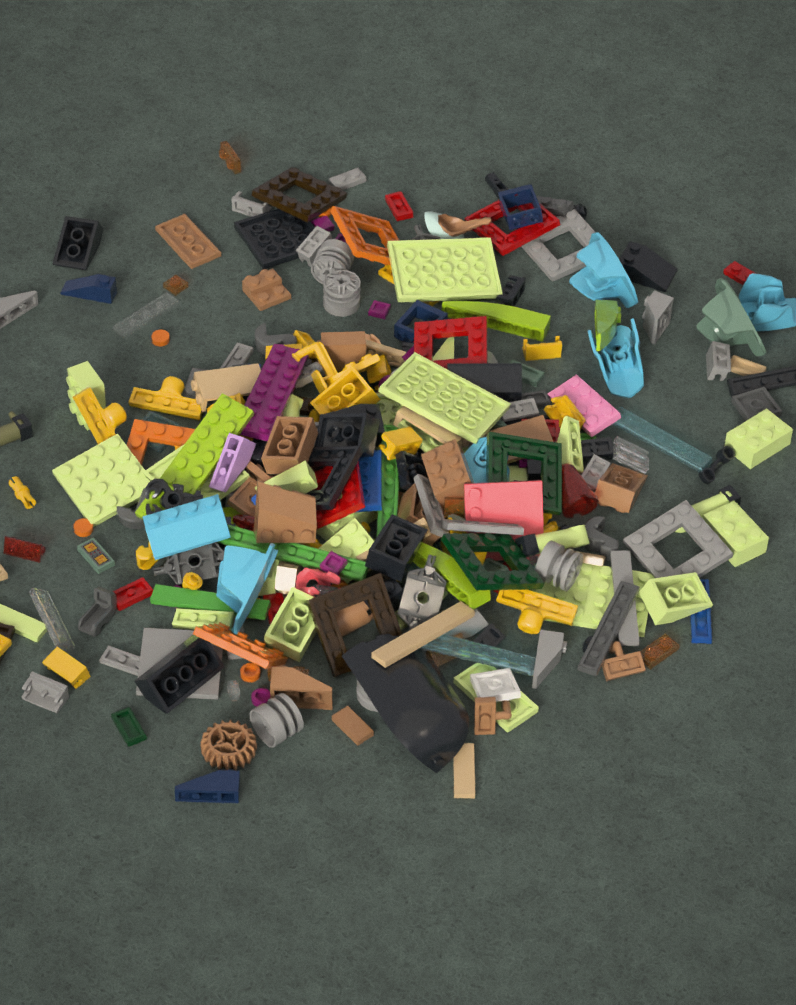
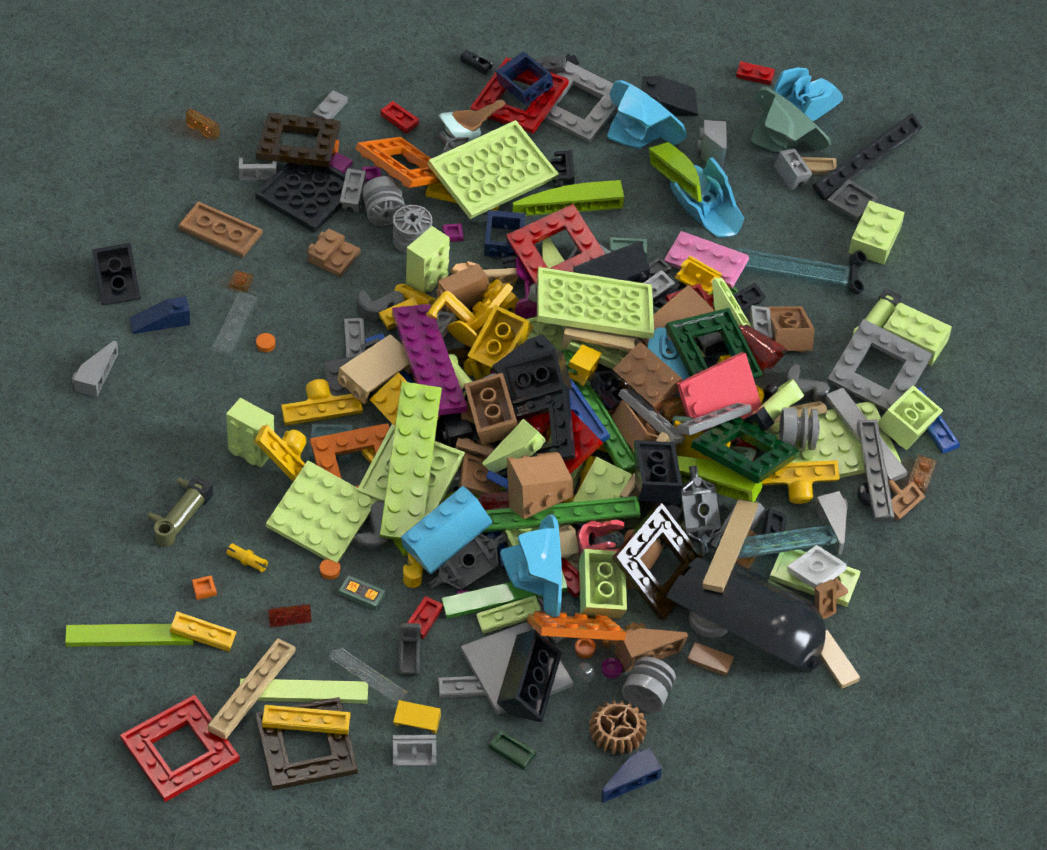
camera: 30 degrees left, 5 degrees up
(169, 498) = (413, 508): black animal -> none
(192, 581) = (476, 581): yellow plate -> none
(232, 461) = (445, 448): lavender slope -> none
(331, 313) = (427, 260): none -> yellowish green brick
(333, 563) = (606, 510): magenta tile -> none
(542, 350) = (630, 217): yellow hinge -> none
(630, 455) = (779, 292): clear plate -> none

